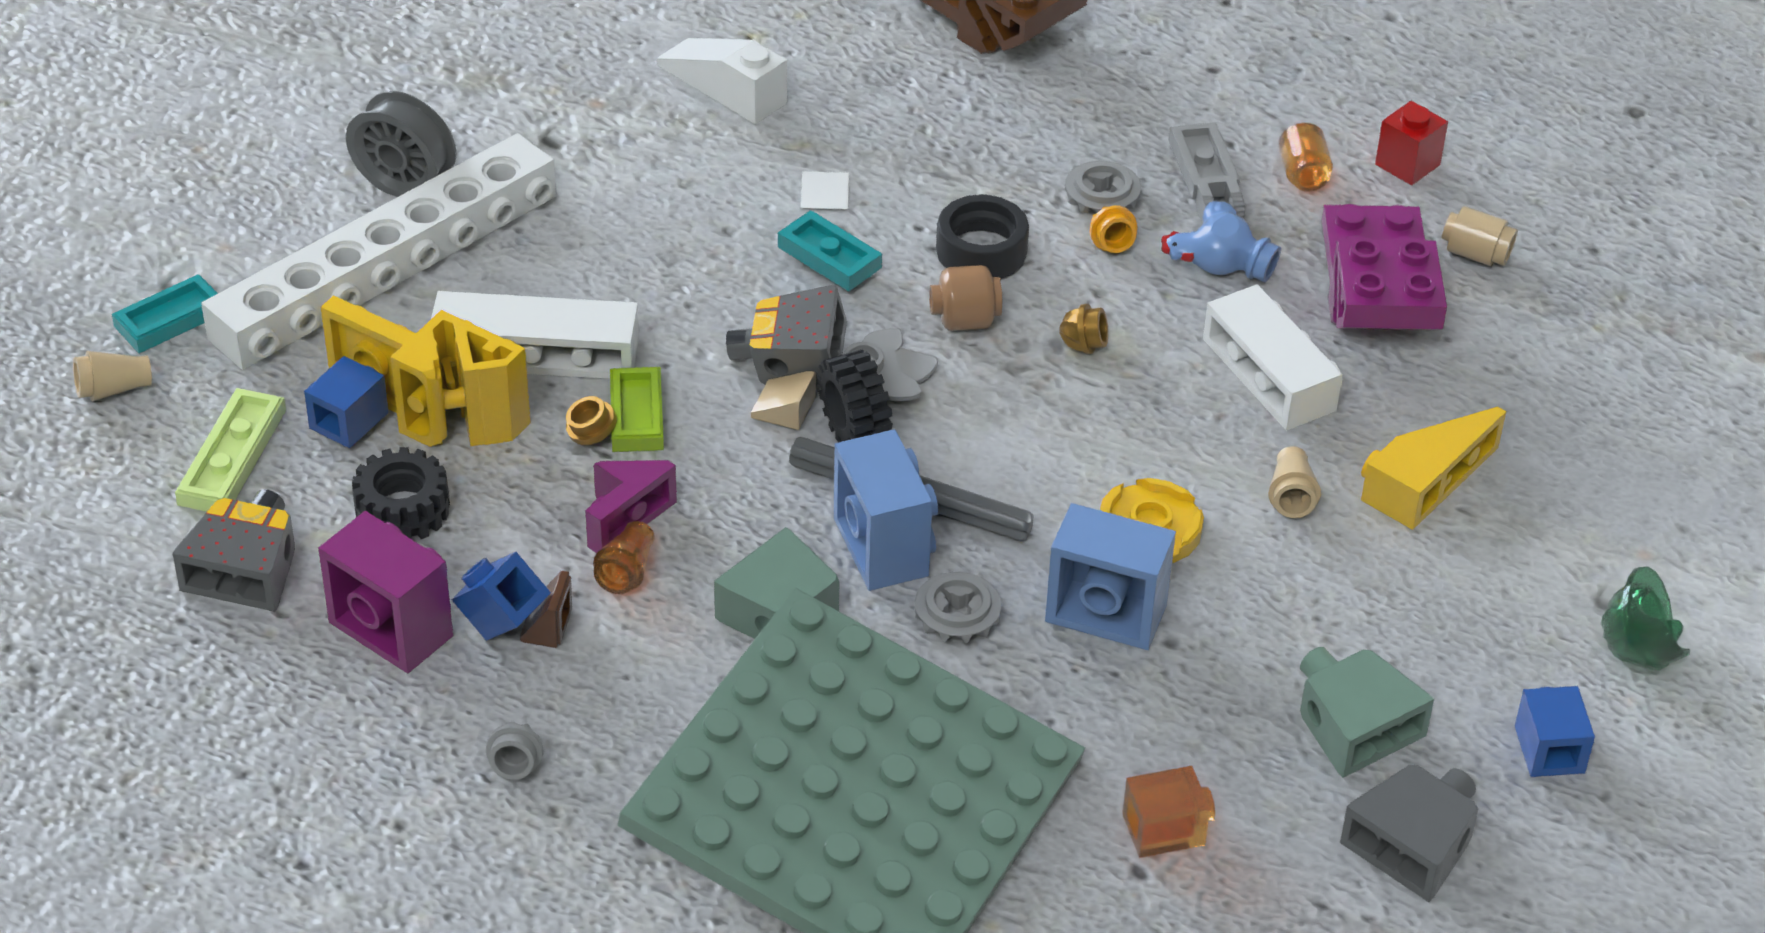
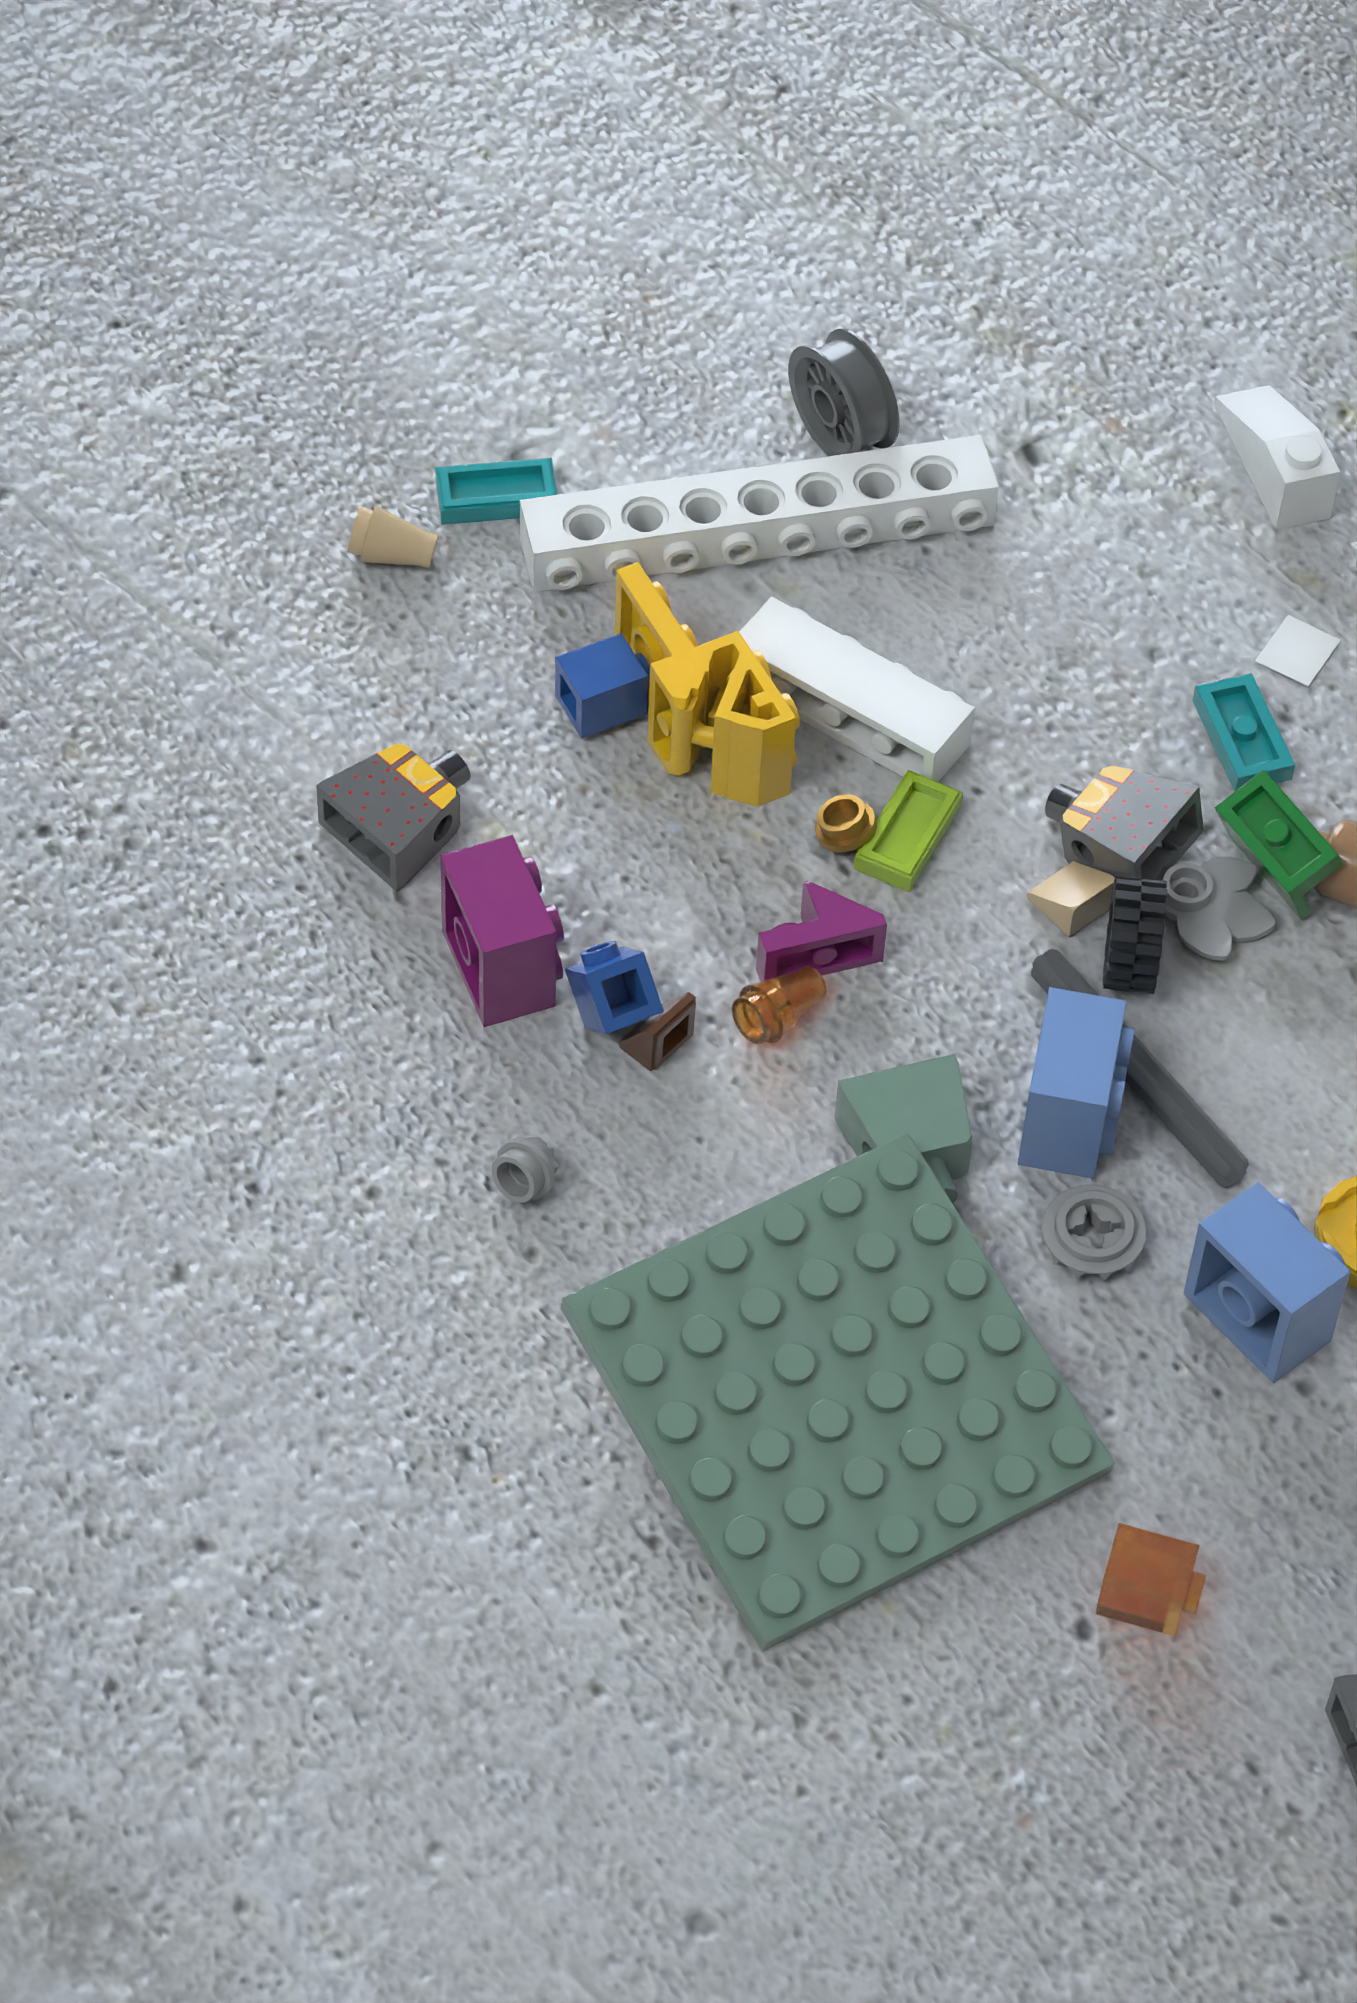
camera: 30 degrees right, 10 degrees up
(231, 449) = (461, 685): yellowish green tile -> none
(403, 473) = (596, 848): black tyre -> none
(909, 300) = (1278, 840): none -> green panel

